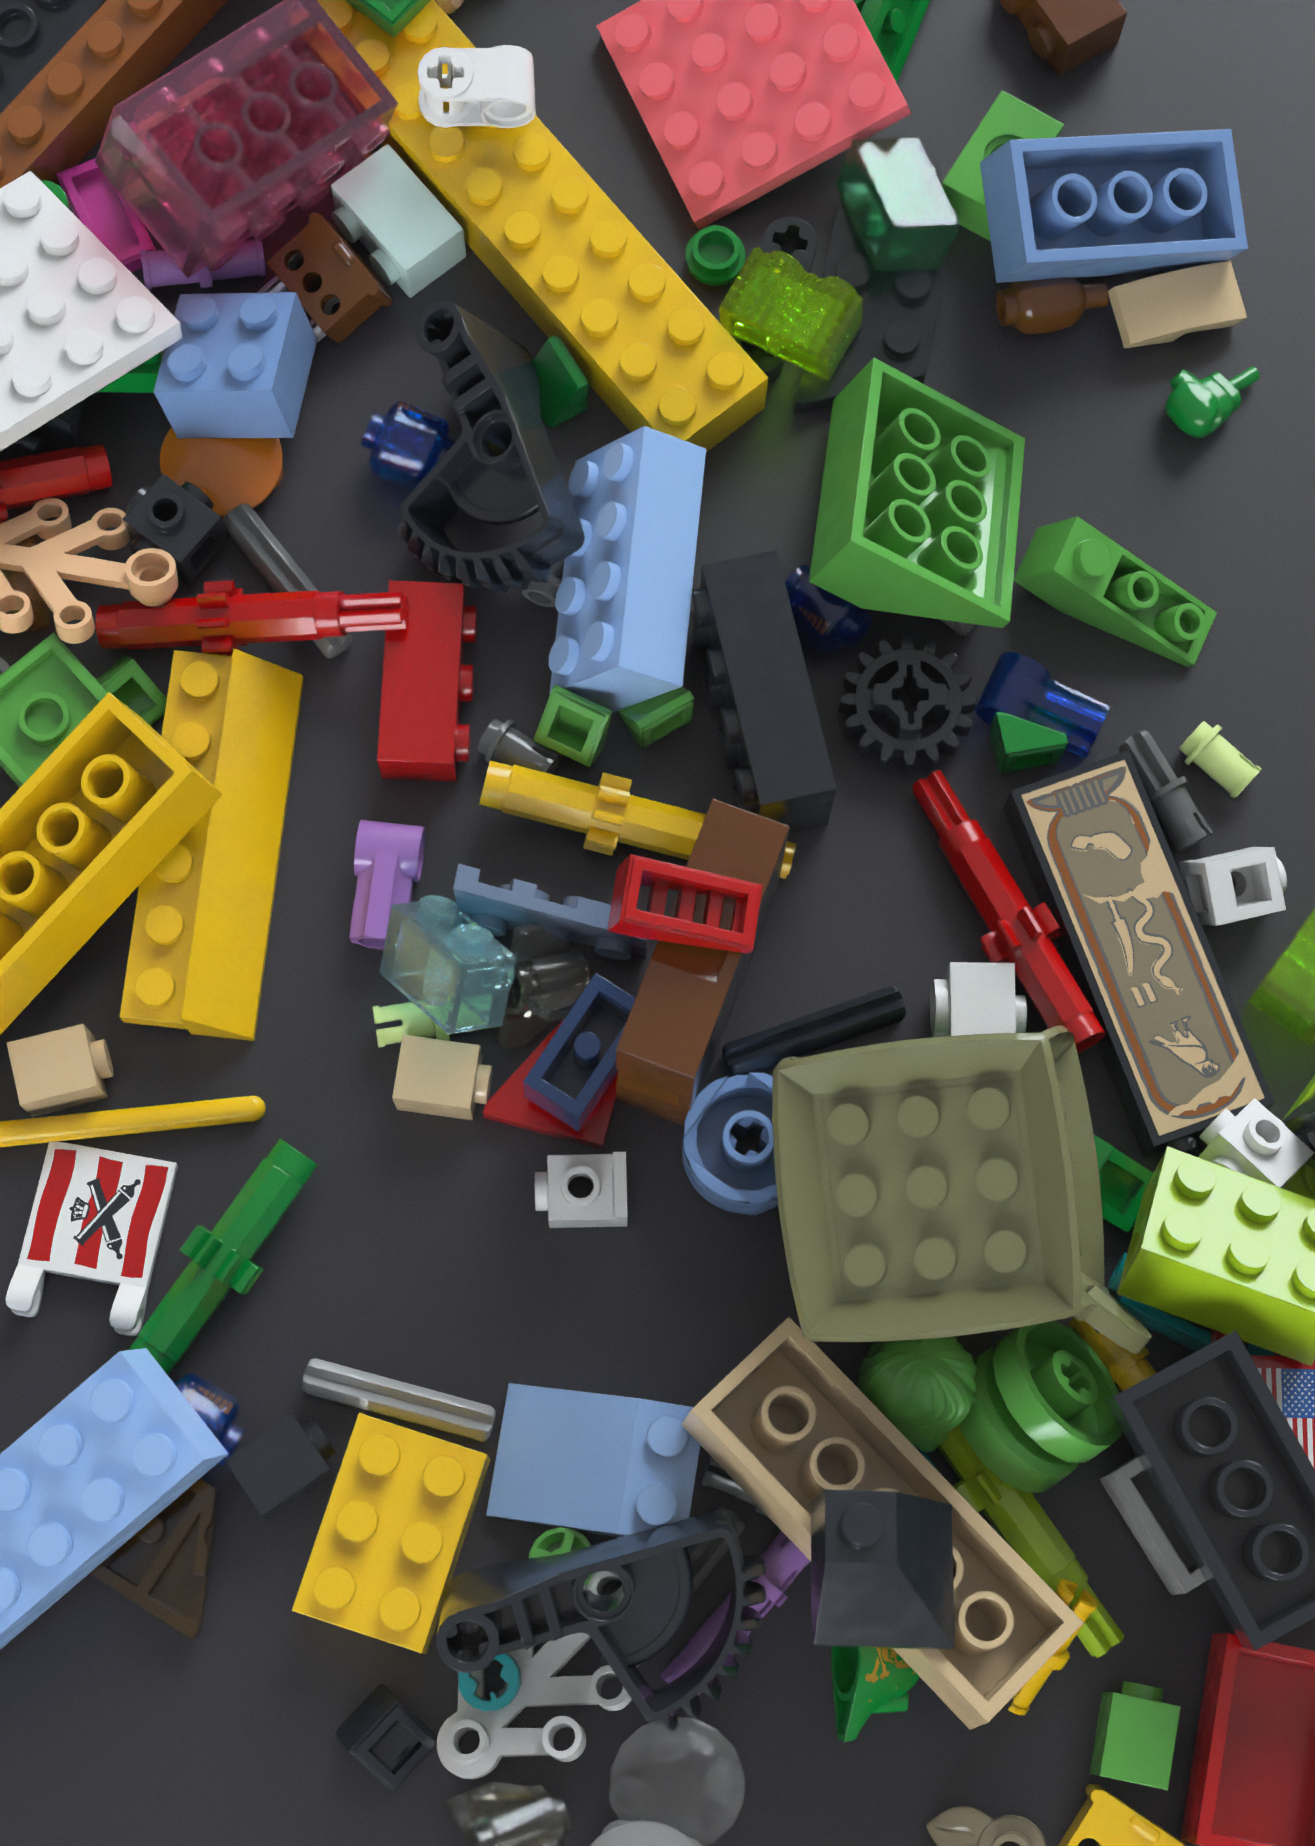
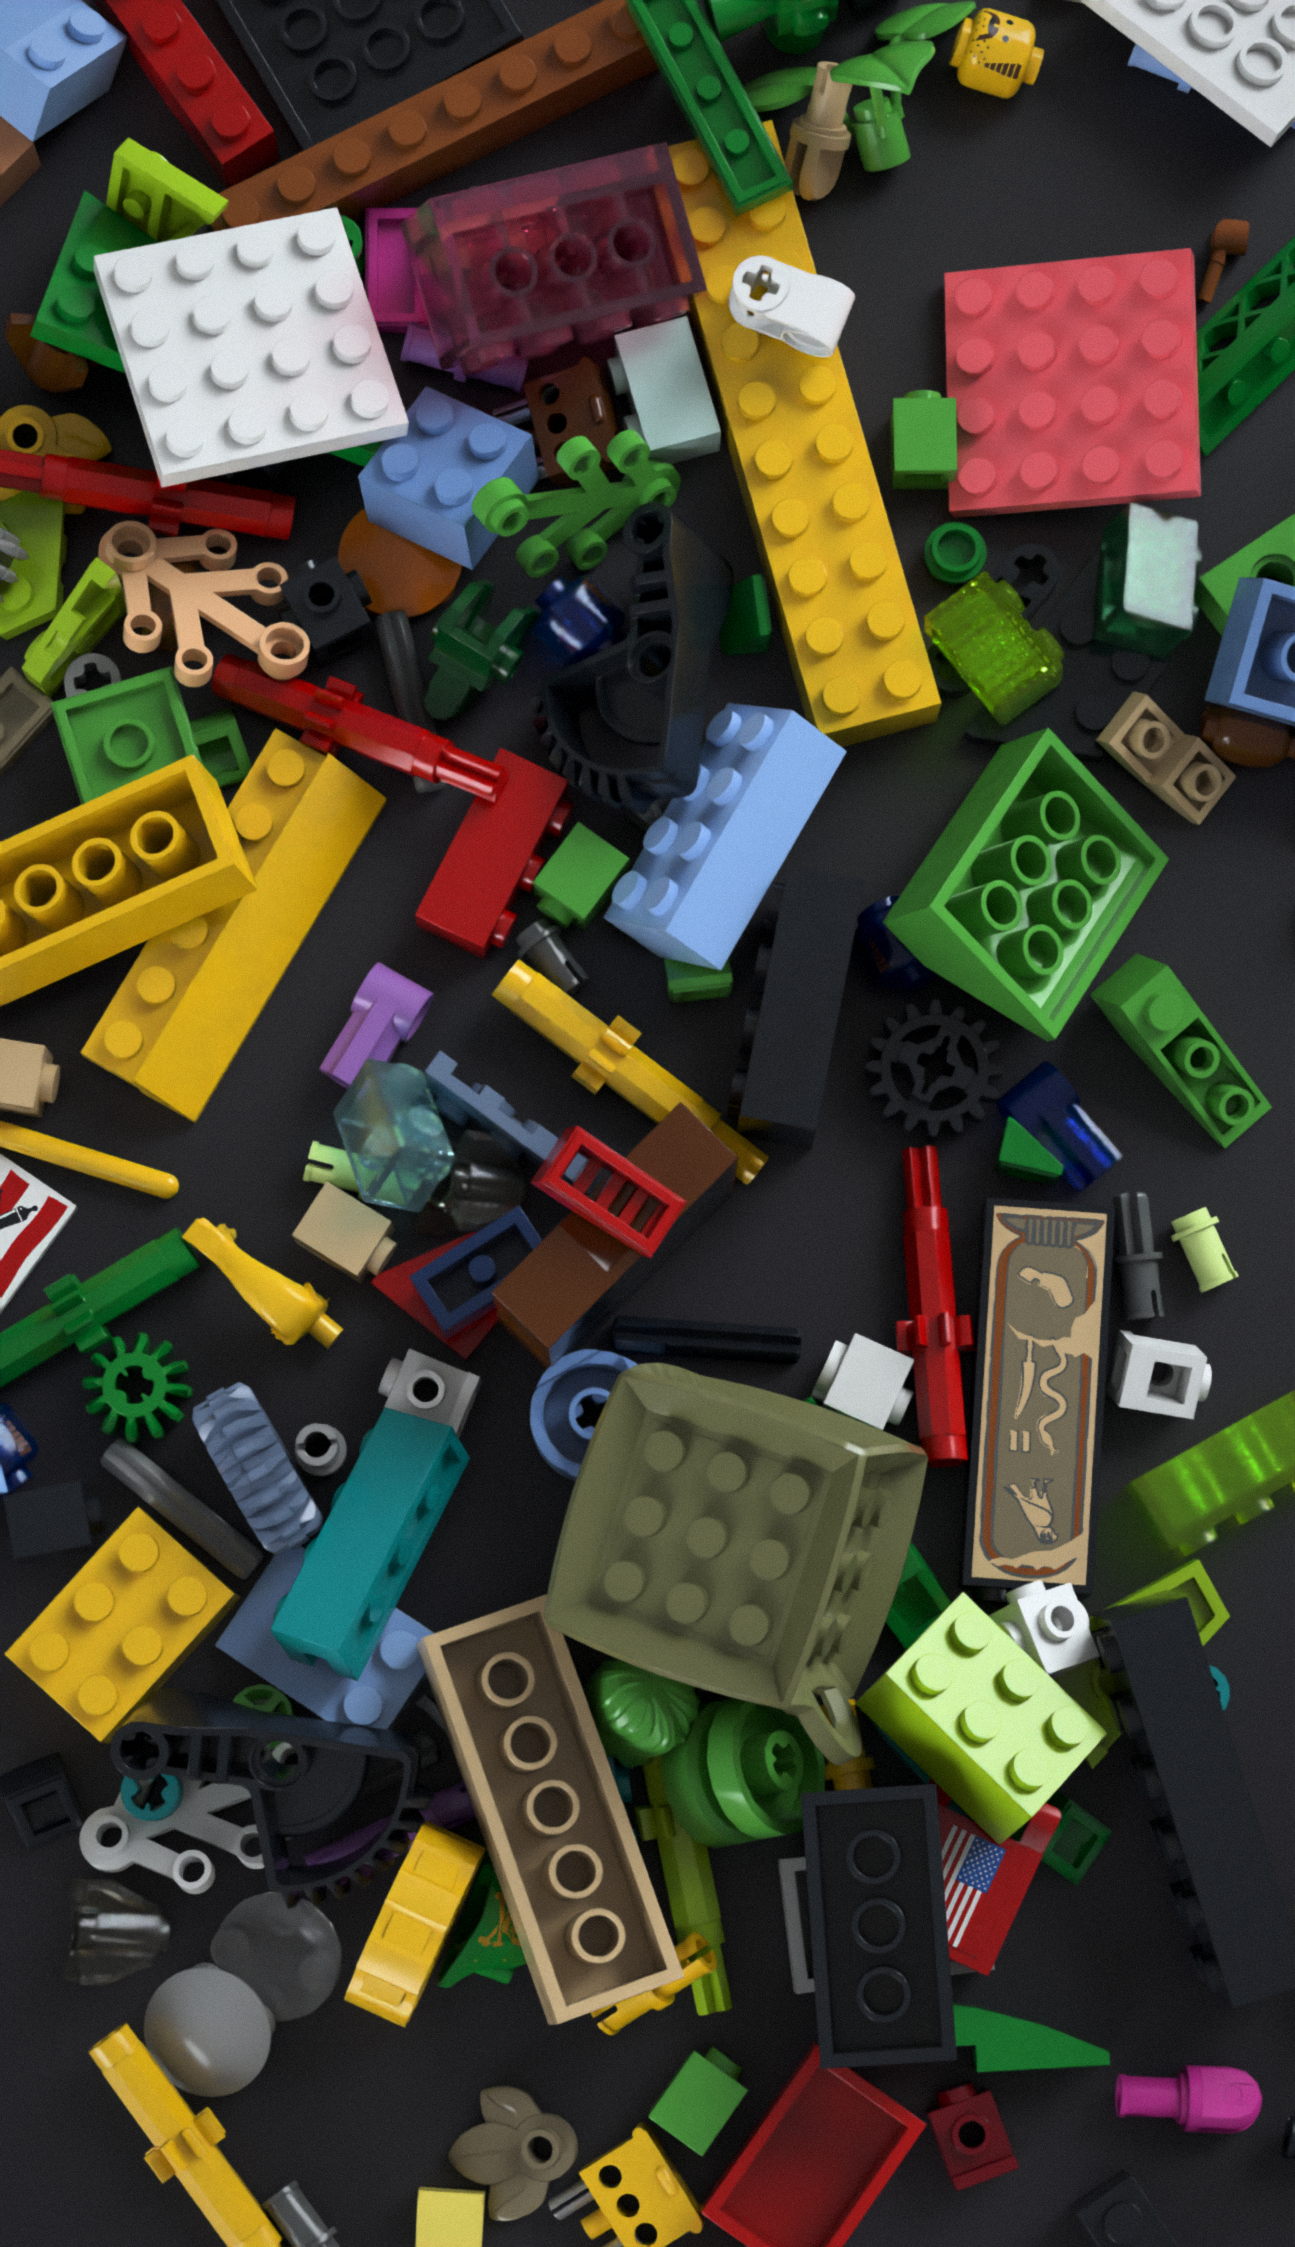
camera: 25 degrees right, 5 degrees up
(305, 359) = (506, 509): none -> bright green plant
(322, 1285) = (121, 1403): none -> green gear
(324, 511) = (472, 651): none -> dark green hinge
(409, 1163) = (282, 1303): none -> yellow animal
(456, 1327) = (257, 1468): none -> sand blue gear
(505, 1268) = (310, 1438): none -> light grey pin
(511, 669) = (579, 878): none -> bright green brick
(573, 726) = (611, 959): bright green slope -> none
(593, 1350) = (370, 1542): none -> teal brick
(644, 171) = (923, 441): none -> bright green brick
(798, 1700) = (414, 1924): none -> yellow connector
(881, 1571) = (524, 1853): black slope -> none
(982, 355) = (1165, 759): none -> tan slope

